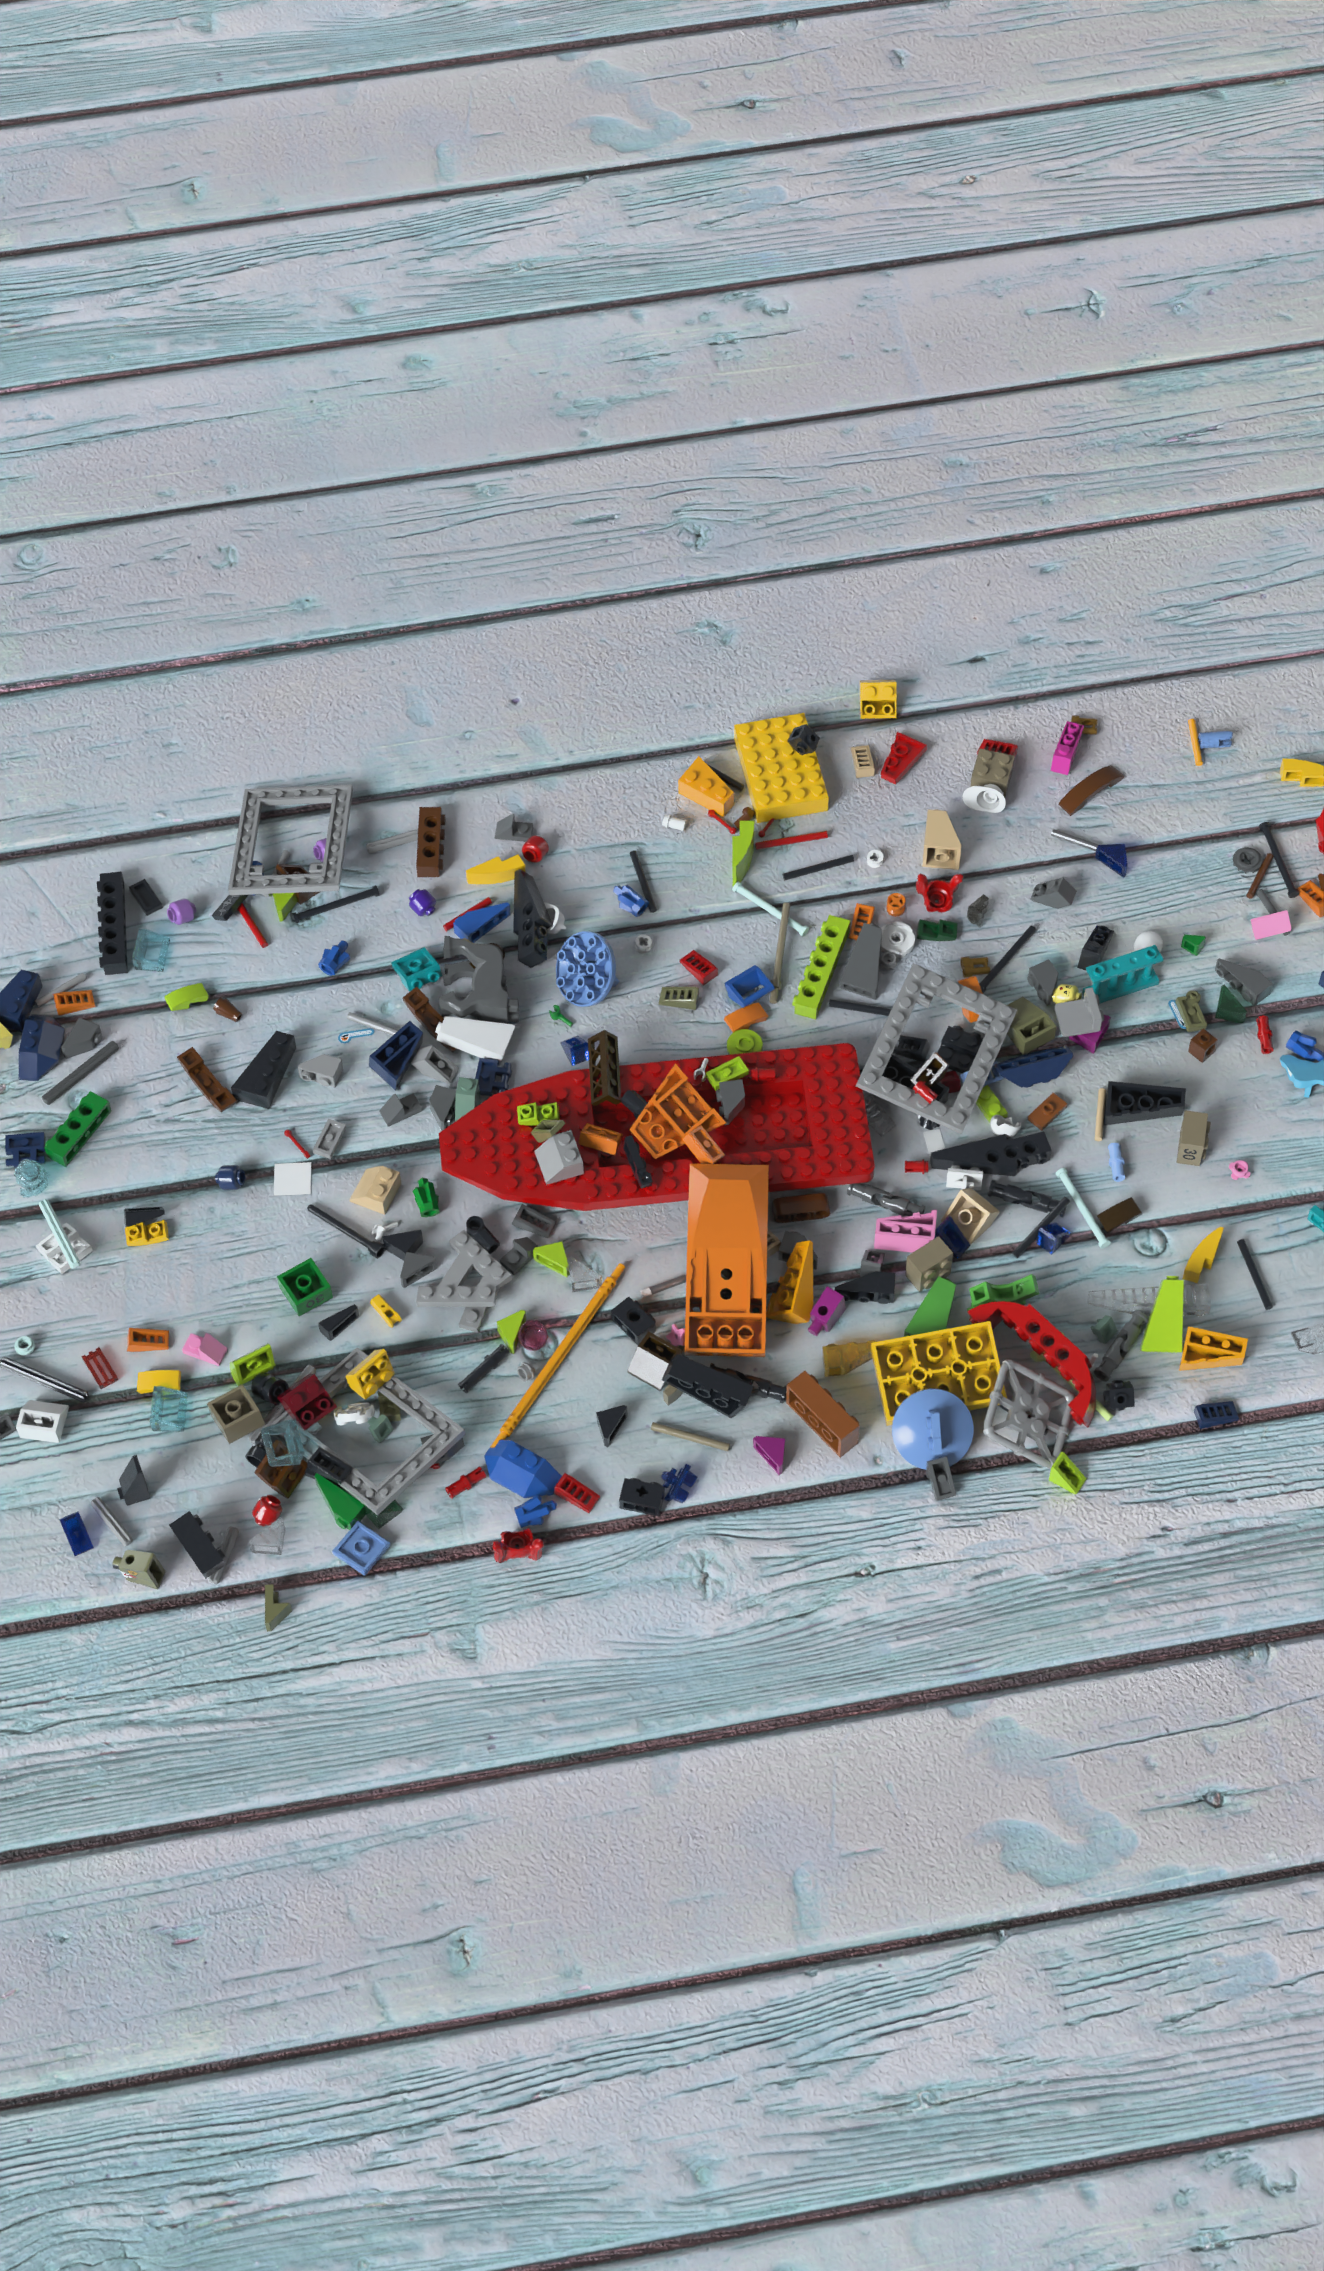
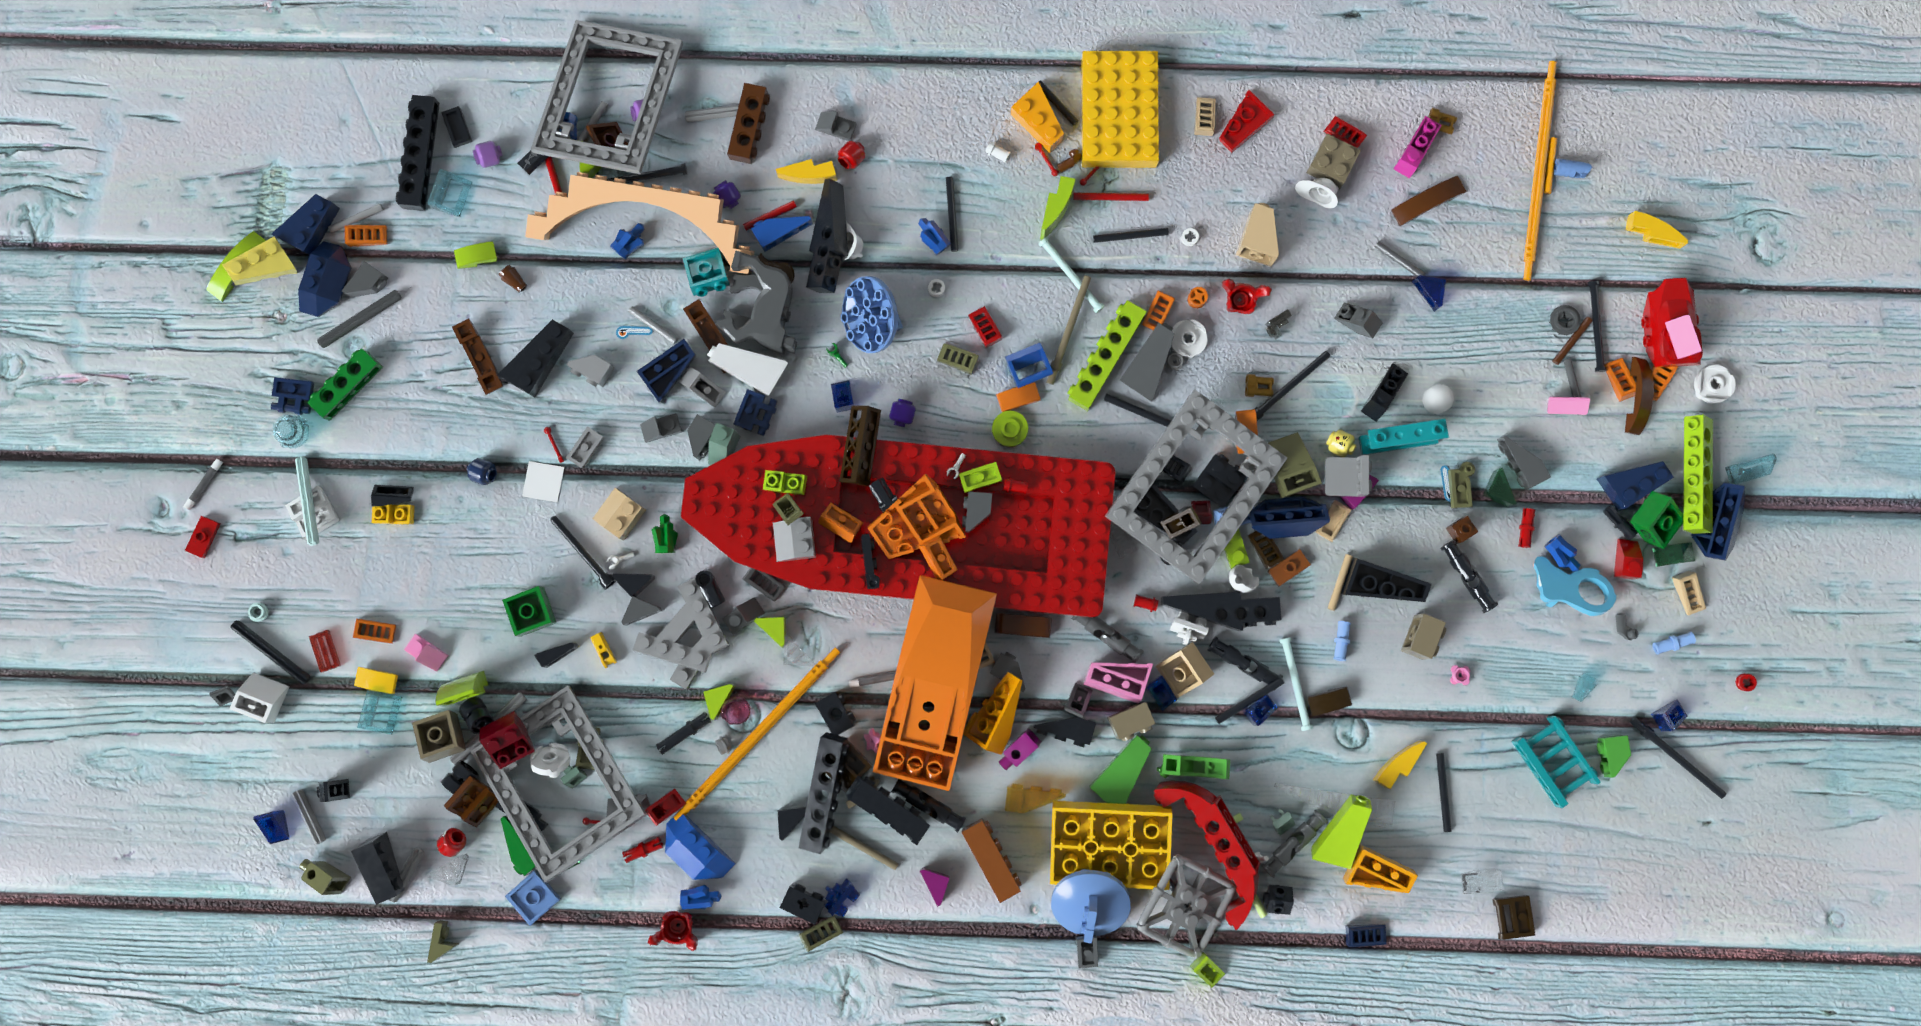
camera: 15 degrees right, 25 degrees up
(293, 1442) = (485, 790): clear light blue tile -> none
(296, 917) = (591, 192): none -> light nougat arch
(322, 1454) = (502, 820): black slope -> none
(370, 1374) = (569, 729): yellow slope -> none
(480, 1435) = (665, 807): none -> red slope
(573, 1483) = (733, 884): red slope -> none
(634, 1333) = (810, 839): none -> black brick
(636, 1049) = (902, 412): none -> dark purple head
(656, 1532) = (805, 941): none -> olive slope
(803, 739) = (1148, 91): black brick -> none
(877, 699) = (1238, 45): yellow slope -> none
(925, 1092) = (1171, 541): red pin -> none
(933, 1140) = (1170, 580): white sticker -> none
(939, 931) = (1231, 336): dark green slope -> none
(1019, 1106) = (1267, 564): none -> dark brown slope
(1044, 979) = (1324, 419): dark grey slope -> none
(1078, 1064) = (1337, 514): none -> tan tile
(1187, 750) = (1540, 171): none -> light orange axle
(1193, 943) = (1483, 409): green slope -> none
(1213, 1077) = (1462, 564): none -> black piece

